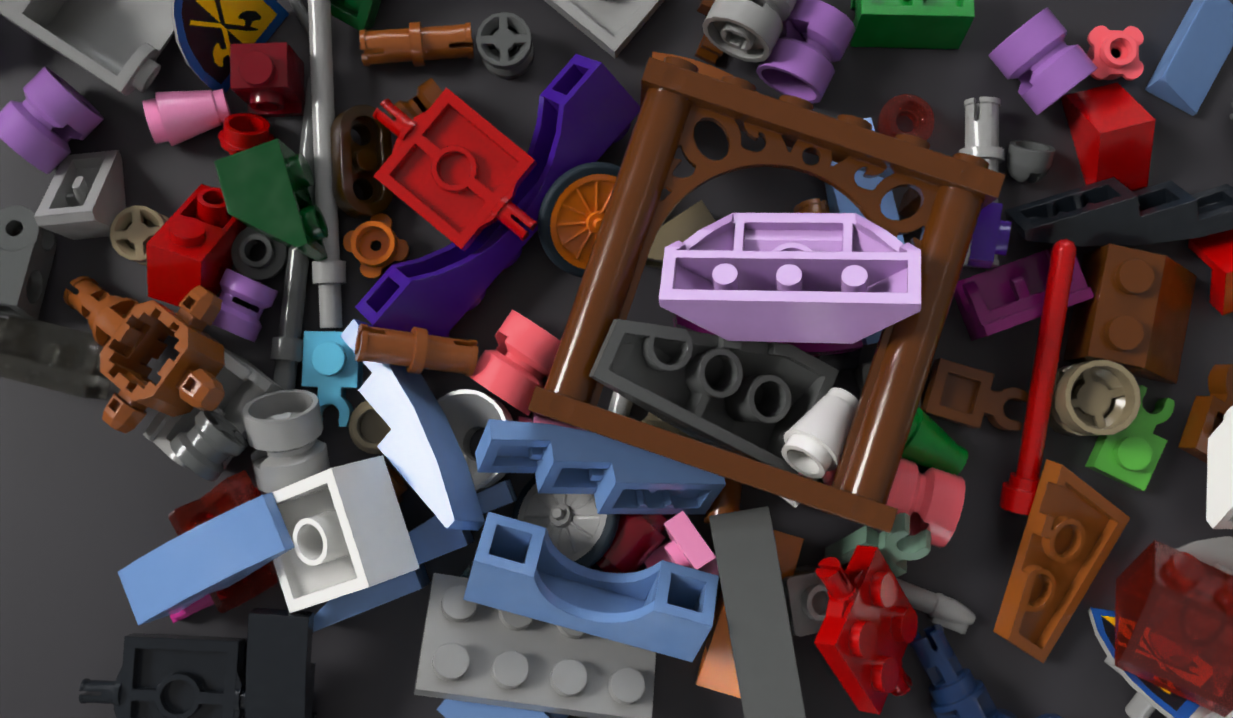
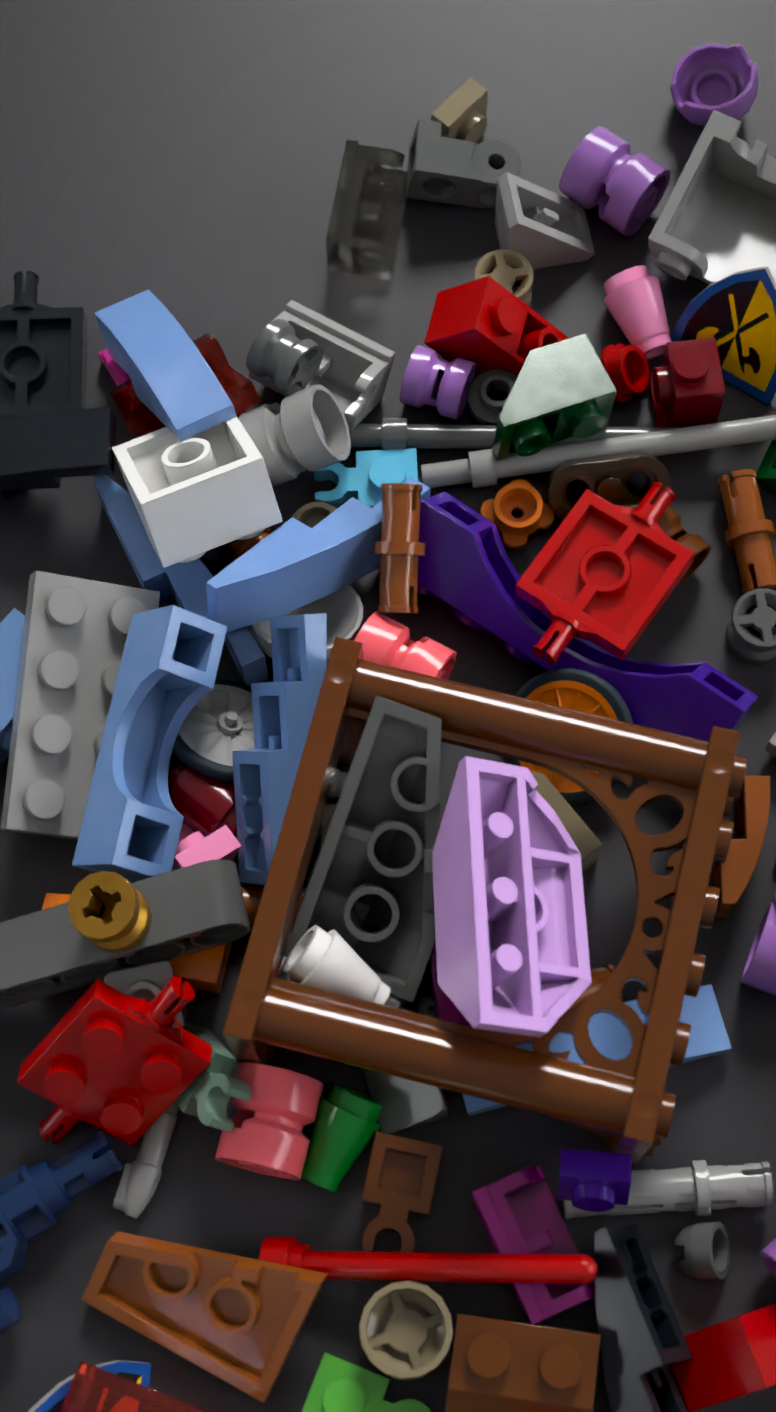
camera: 85 degrees right, 15 degrees down
(135, 334) = (396, 285): dark orange piece -> none
(756, 615) = (122, 923): none -> pearl gold wheel
(912, 107) = (743, 1077): clear red plate -> none

